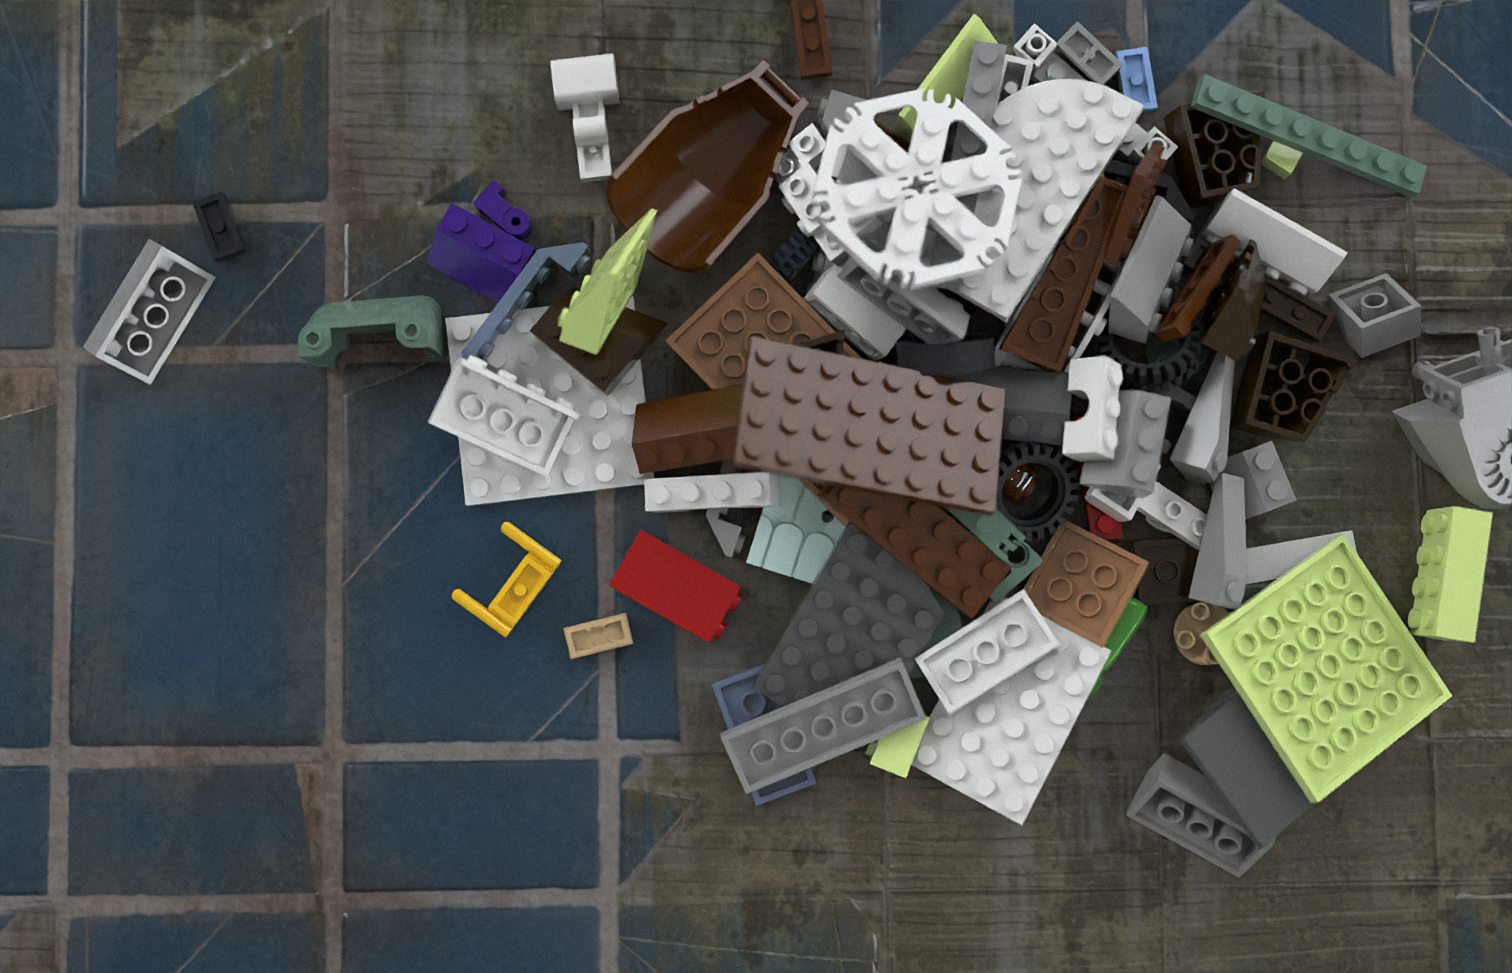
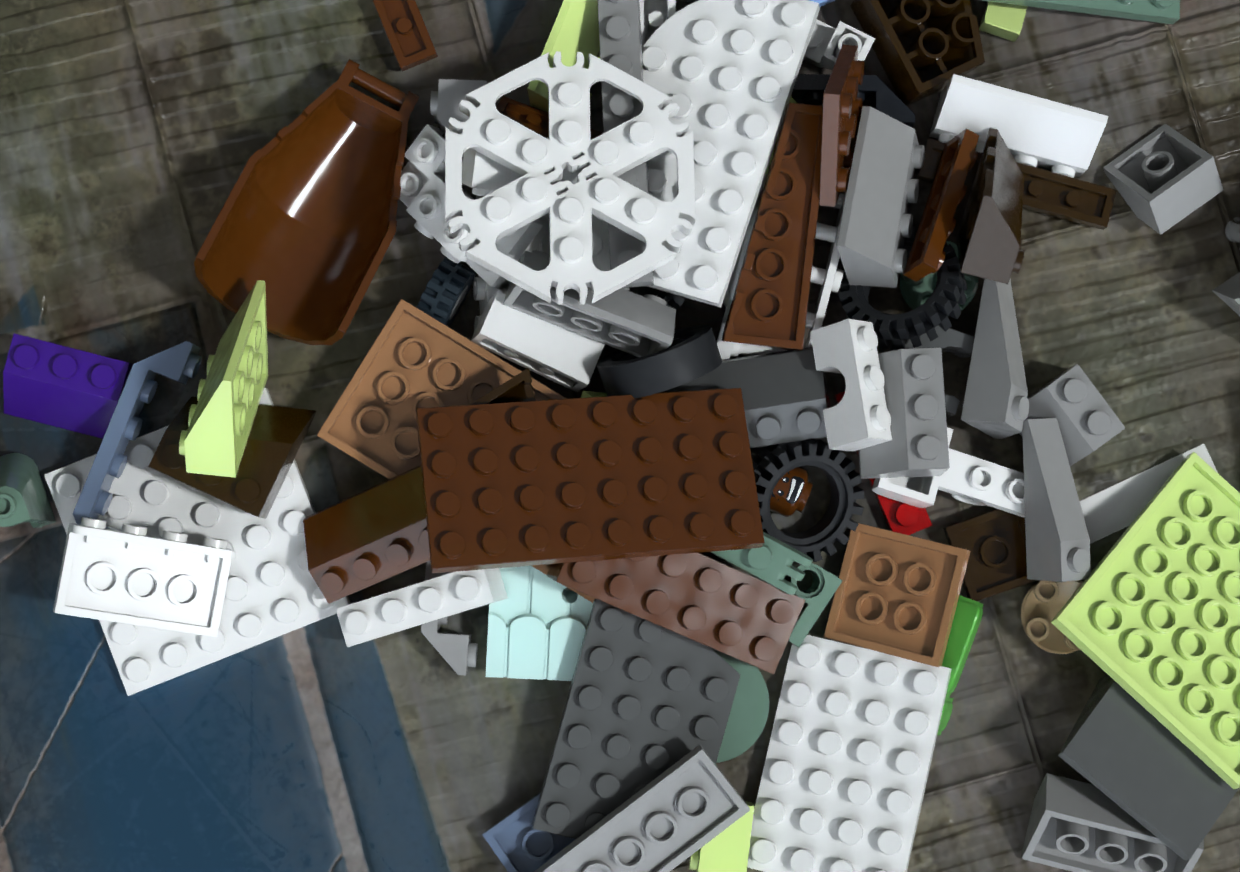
camera: 20 degrees left, 0 degrees up
(502, 214) = (94, 334): dark purple leg -> none
(519, 589) = (219, 781): yellow plate -> none
(586, 87) = (143, 148): white plate -> none
(598, 635) = (330, 811): tan plate -> none
(676, 587) = (409, 727): red brick -> none
(987, 651) = (802, 708): white plate -> none
(1287, 387) = (1081, 293): dark brown wedge -> none

